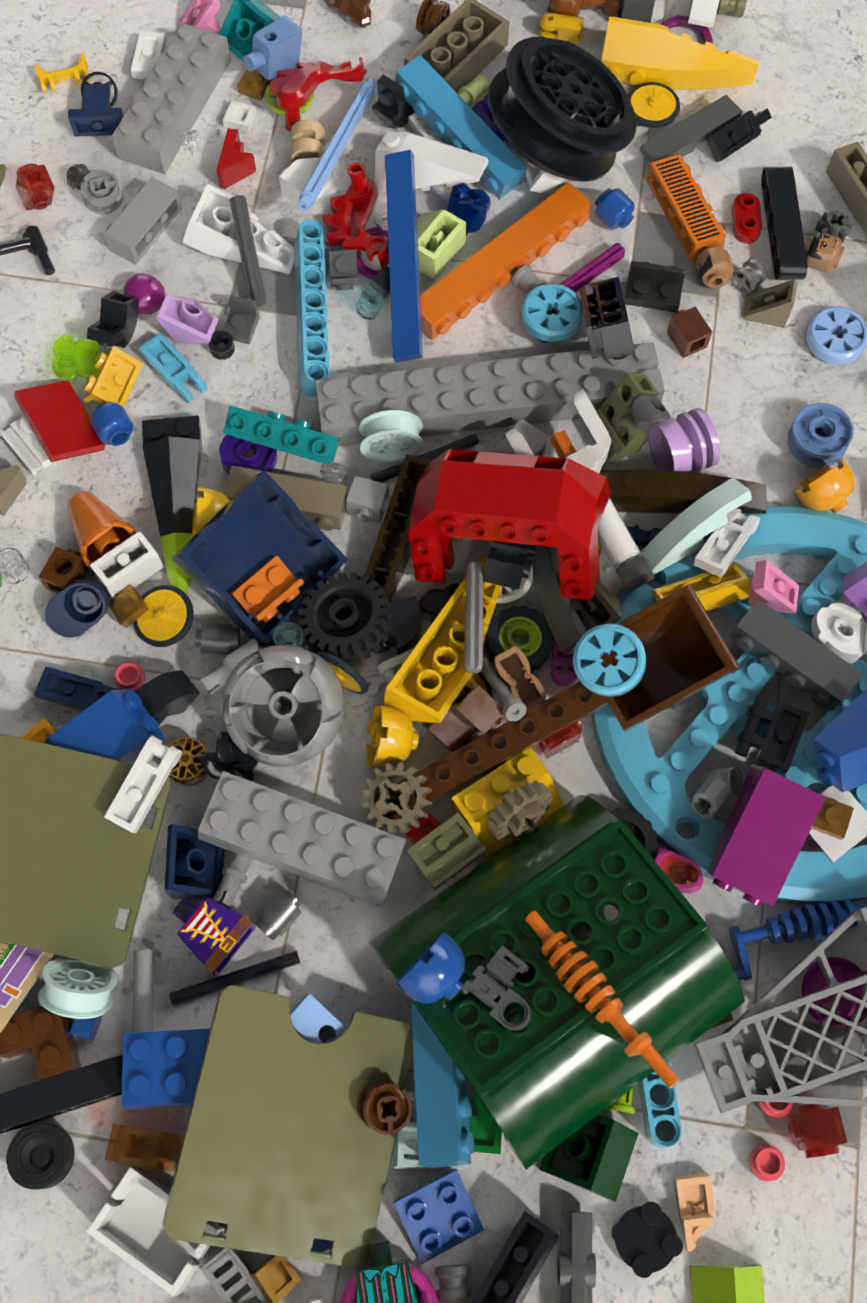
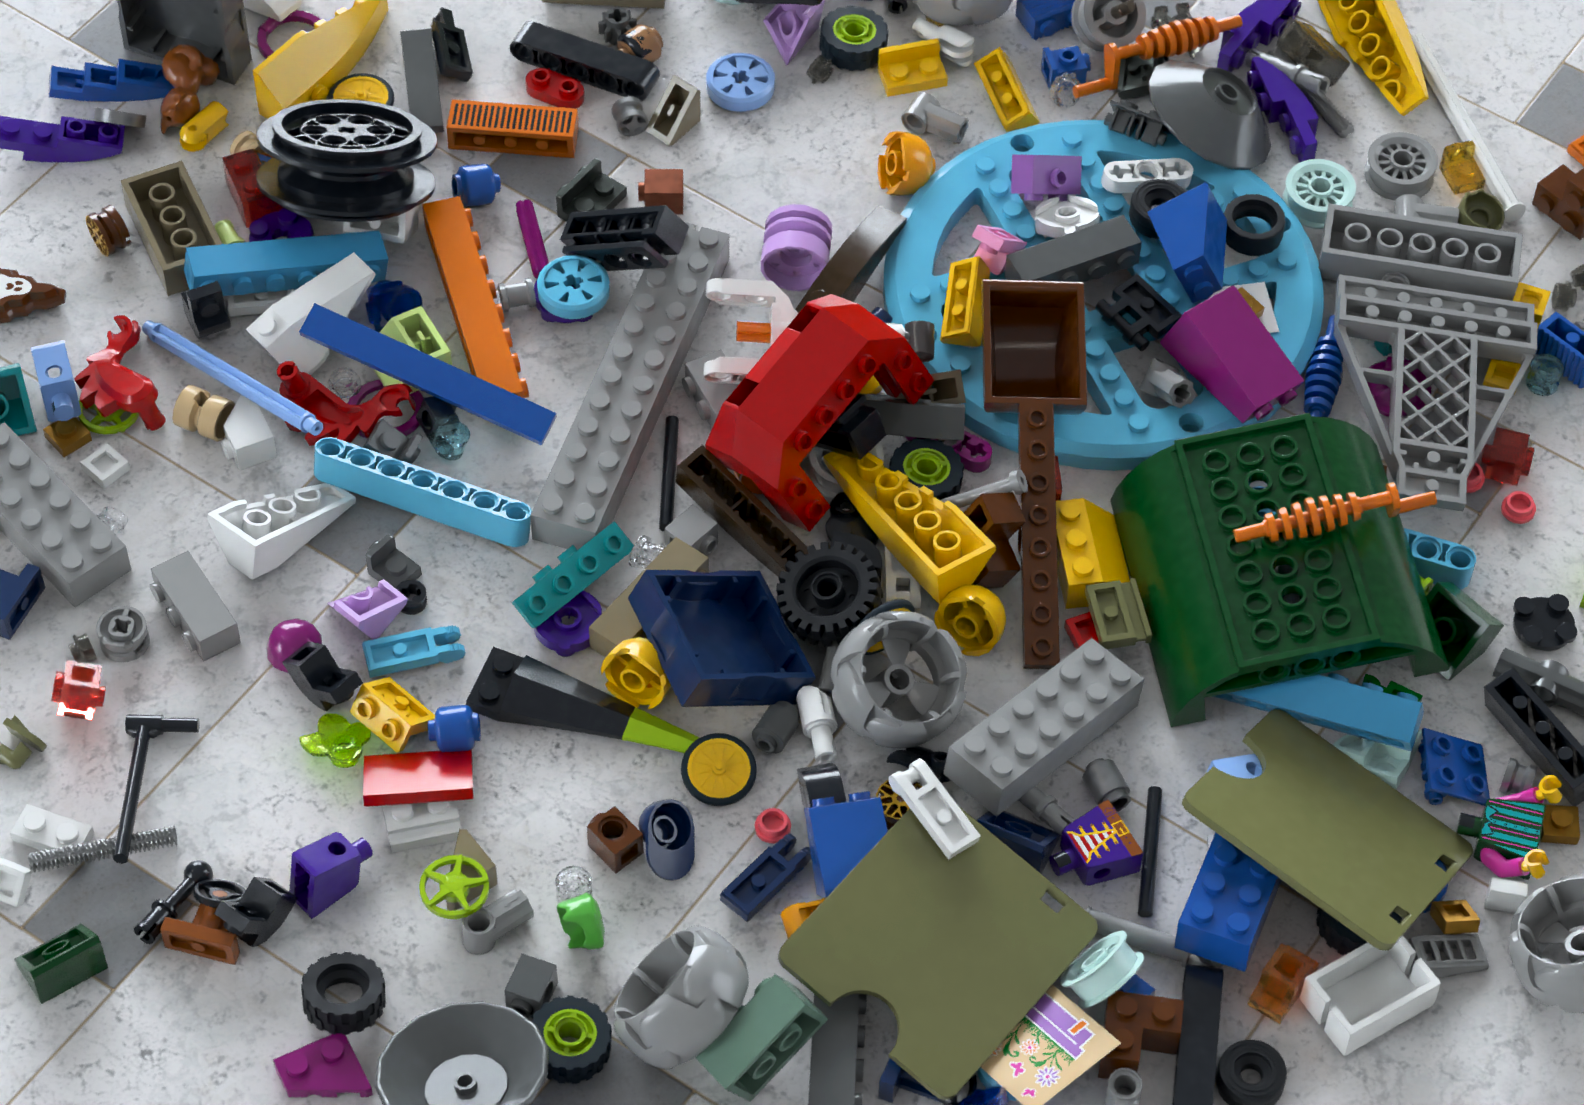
camera: 65 degrees left, 15 degrees down
(96, 526) = (582, 783): orange cone -> none
(127, 564) = (645, 768): white brick -> none
(128, 606) = (691, 792): pearl gold plate -> none
(234, 162) = (170, 494): red slope -> none
(247, 249) = (317, 513): dark grey axle -> none
(266, 590) = (754, 647): orange bracket -> none
(289, 633) = (820, 654): clear light blue wheel -> none
(385, 1107) = (1343, 752): reddish brown wheel -> none
(391, 436) = (638, 478): light aqua wheel -> none
(408, 790) = (1047, 612): dark tan gear -> none
(435, 972) = (1252, 622): blue cylinder -> none
(474, 618) = (897, 480): light grey axle -> none
(495, 983) = (1289, 590): dark grey piece -> none
(515, 672) = (972, 470): medium nougat brick -> none
(519, 811) = (1115, 530): dark tan gear -> none
(614, 679) = (1013, 393): medium azure wheel -> none
(628, 413) = (727, 263): olive hips -> none
(687, 530) = (893, 268): light aqua slope -> none
(694, 1206) = (1530, 577): light nougat slope -> none
(714, 267) = (601, 138): medium nougat head -> none
(726, 542) = (926, 257): white plate -> none
(823, 420) = (844, 145): medium blue wheel -> none

